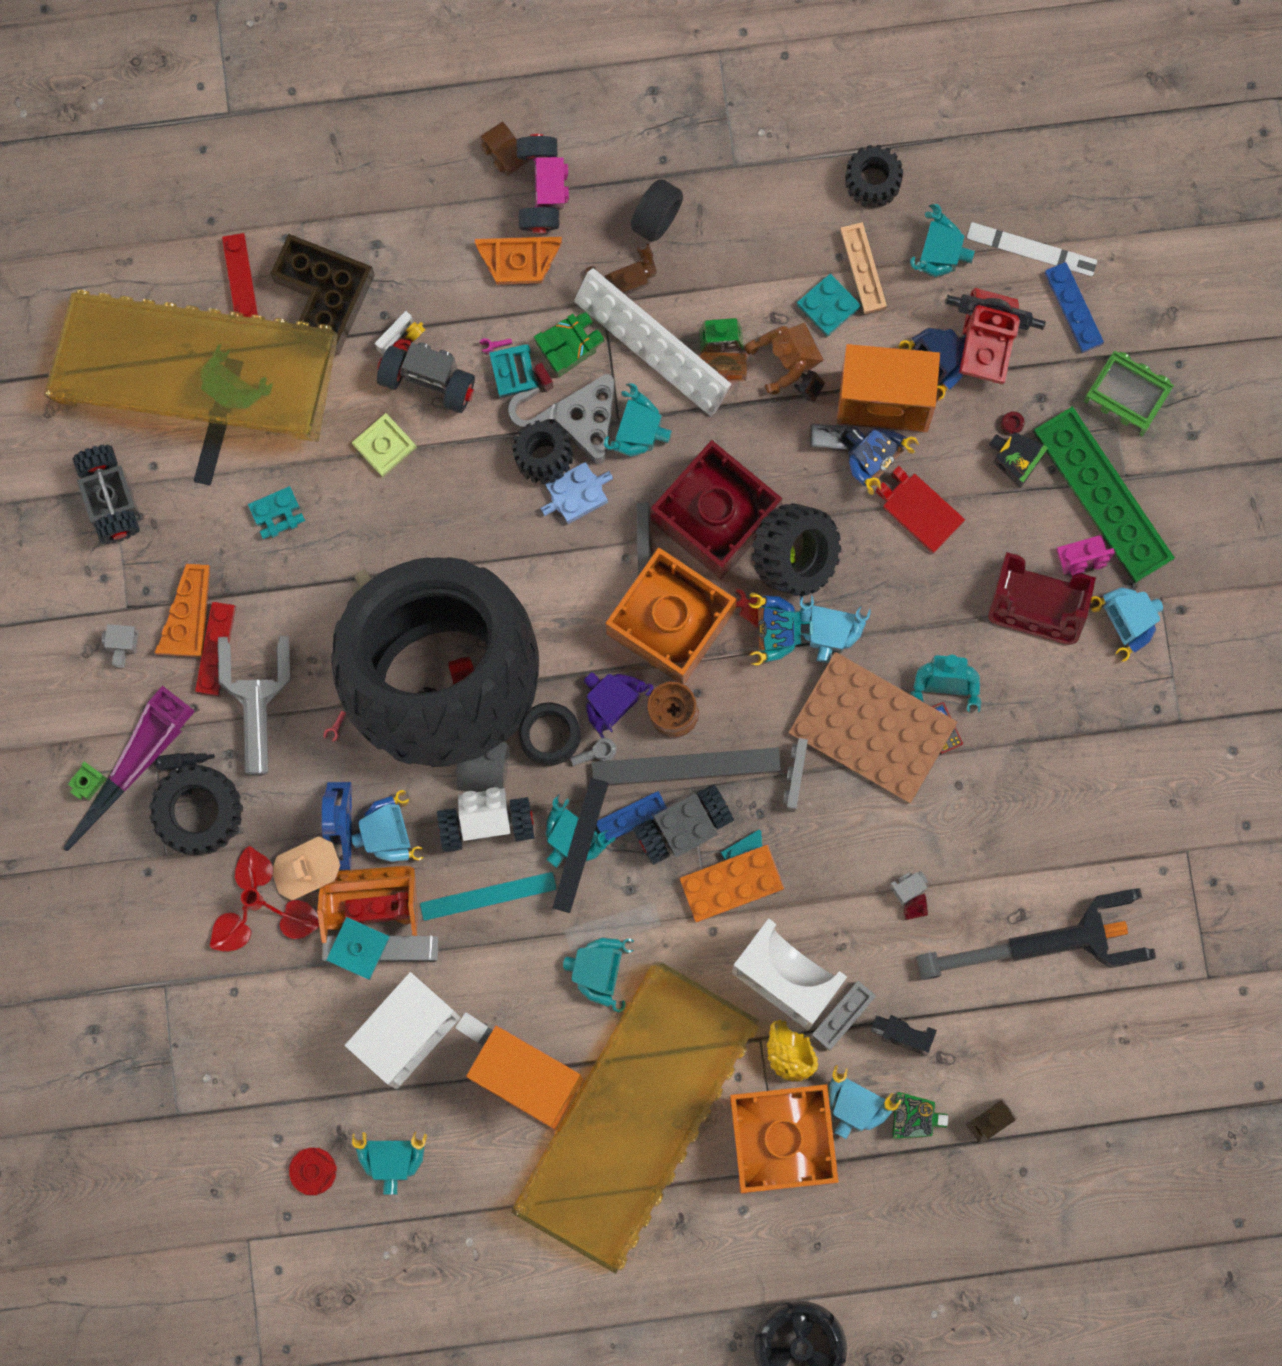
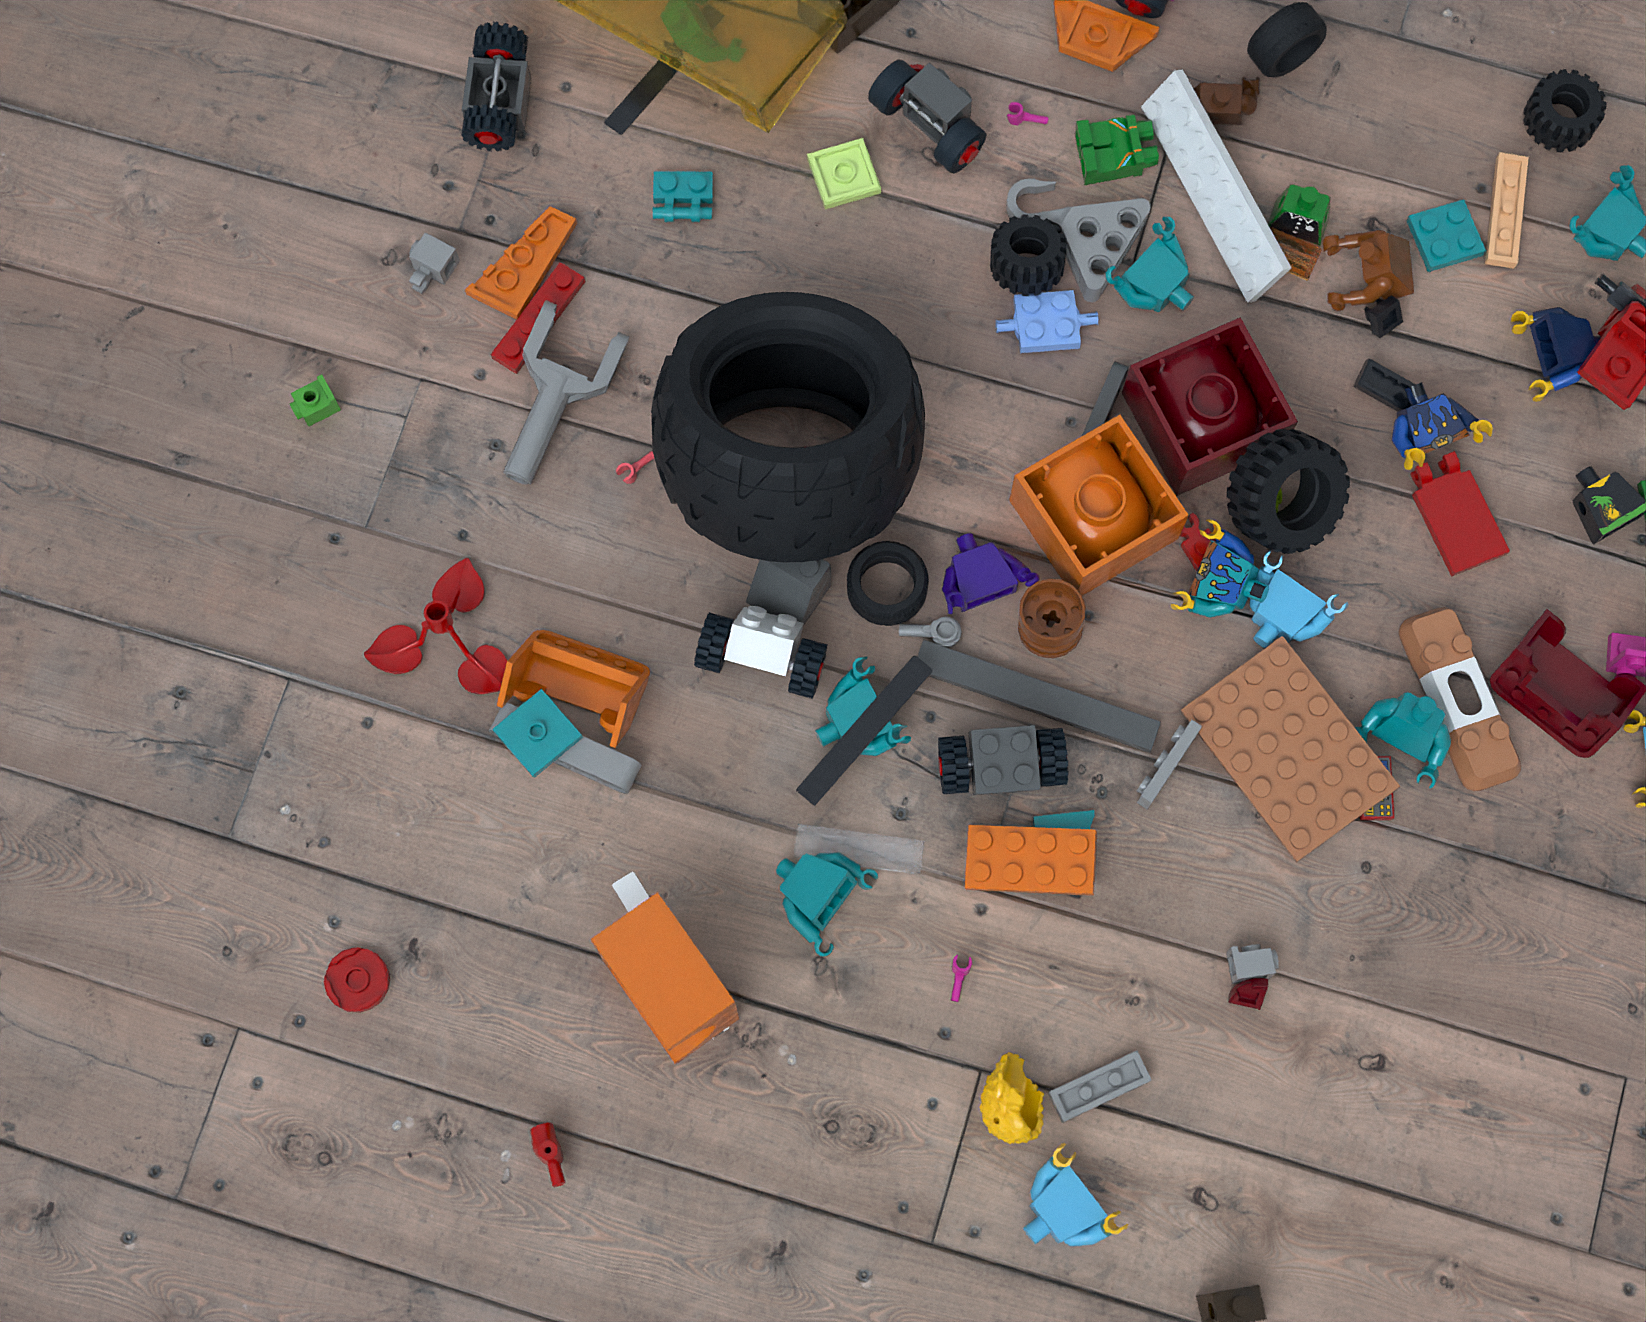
camera: 20 degrees right, 5 degrees down
(153, 734) = (418, 380): magenta plate -> none
(164, 803) = (401, 455): black tyre -> none
(177, 760) = (430, 427): black piece -> none
(305, 868) = (521, 610): light nougat shield -> none
(338, 818) = (583, 568): blue piece -> none
(378, 908) = (584, 697): red plate -> none
(385, 831) = (636, 611): medium azure torso -> none
(390, 1159) = (455, 1007): teal torso -> none
(394, 333) = (917, 51): white tile -> none
(402, 1031) = (541, 854): white piece -> none
(414, 331) = (940, 60): yellow plate -> none
(488, 896) = (725, 744): teal sticker -> none
(497, 1225) = (548, 1151): none -> red piece
(506, 372) = (1025, 151): teal plate -> none
(543, 377) = (1067, 174): dark red tile -> none
(627, 818) = (929, 725): blue plate -> none
(635, 1116) = (781, 1095): clear yellow windscreen -> none
(718, 983) = (959, 977): none -> dark pink hand
(784, 1139) = (957, 1206): orange piece -> none
(786, 976) = (1047, 1002): white piece -> none
(888, 388) = (1484, 349): orange piece -> none
(903, 1035) = (1166, 1145): black hips -> none
(916, 1117) = (1136, 1257): torso -> none
(999, 665) = (1480, 741): none -> nougat piece
(1012, 423) = (1615, 461): dark red tile -> none
(1087, 935) = (1457, 1125): black piece -> none

